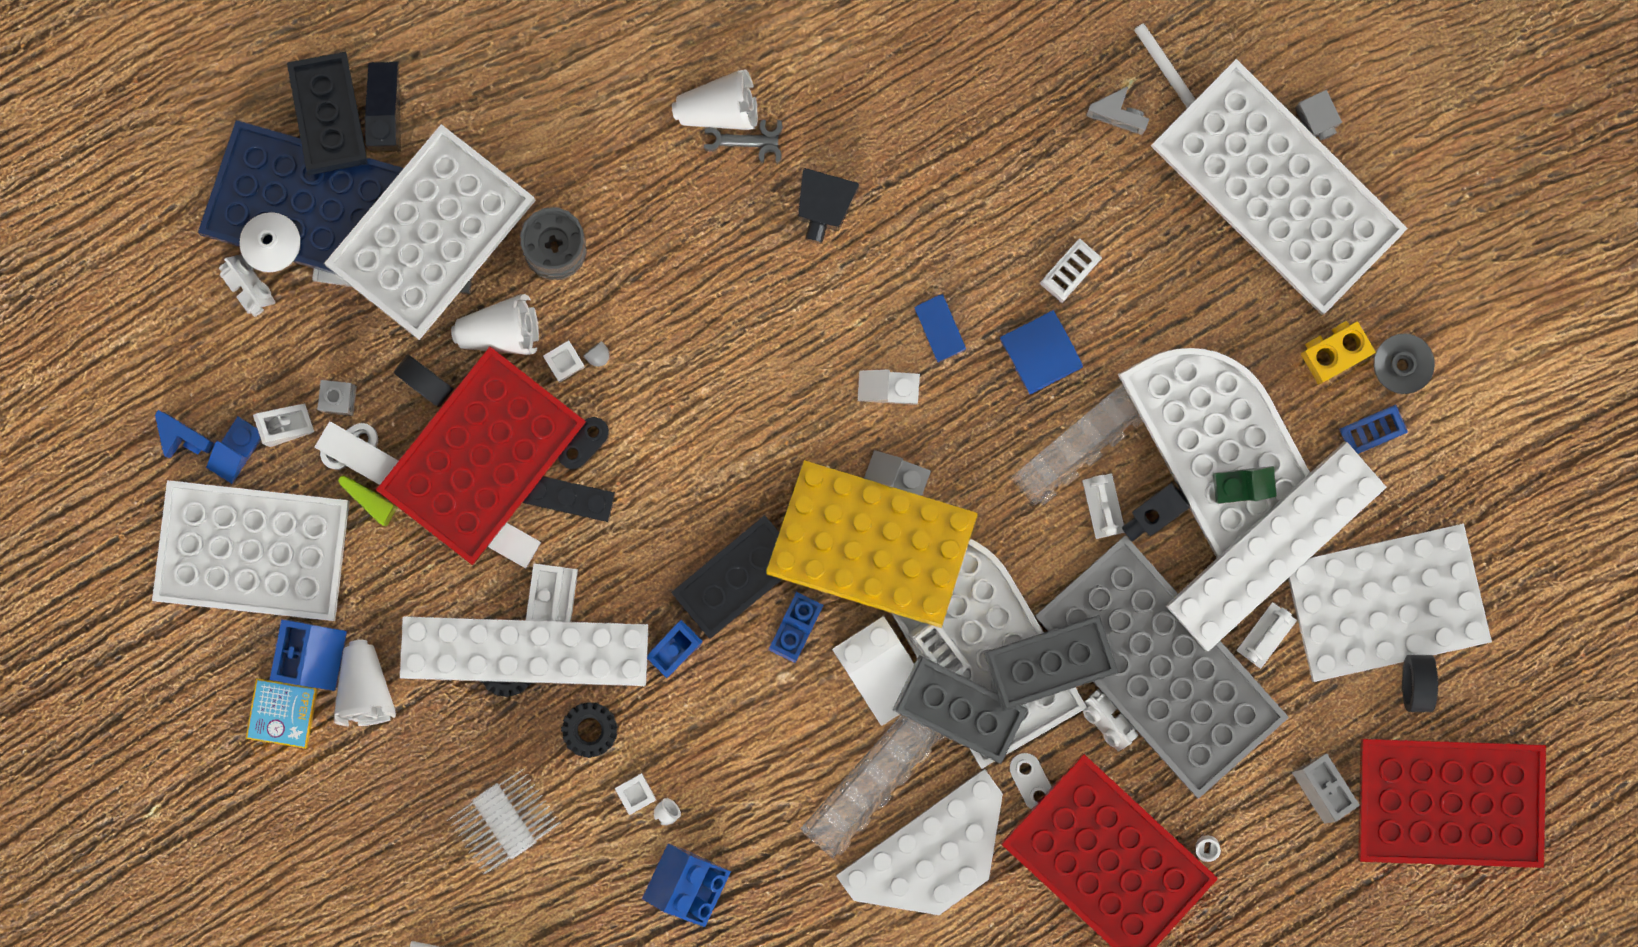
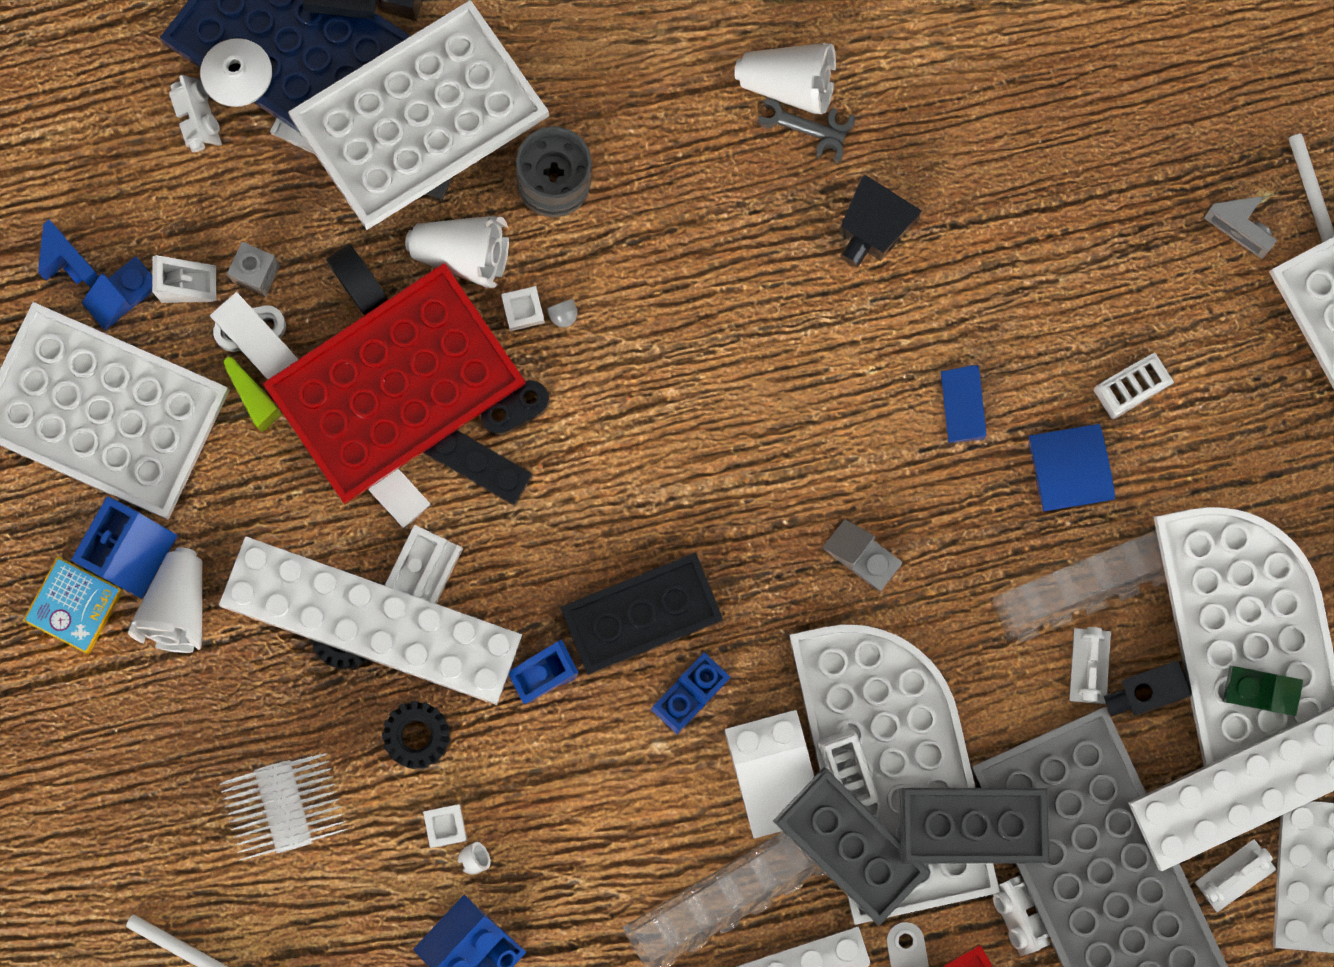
camera: 20 degrees right, 5 degrees down
(872, 544) = (809, 624): yellow plate -> none
(888, 387) = (883, 453): white slope -> none

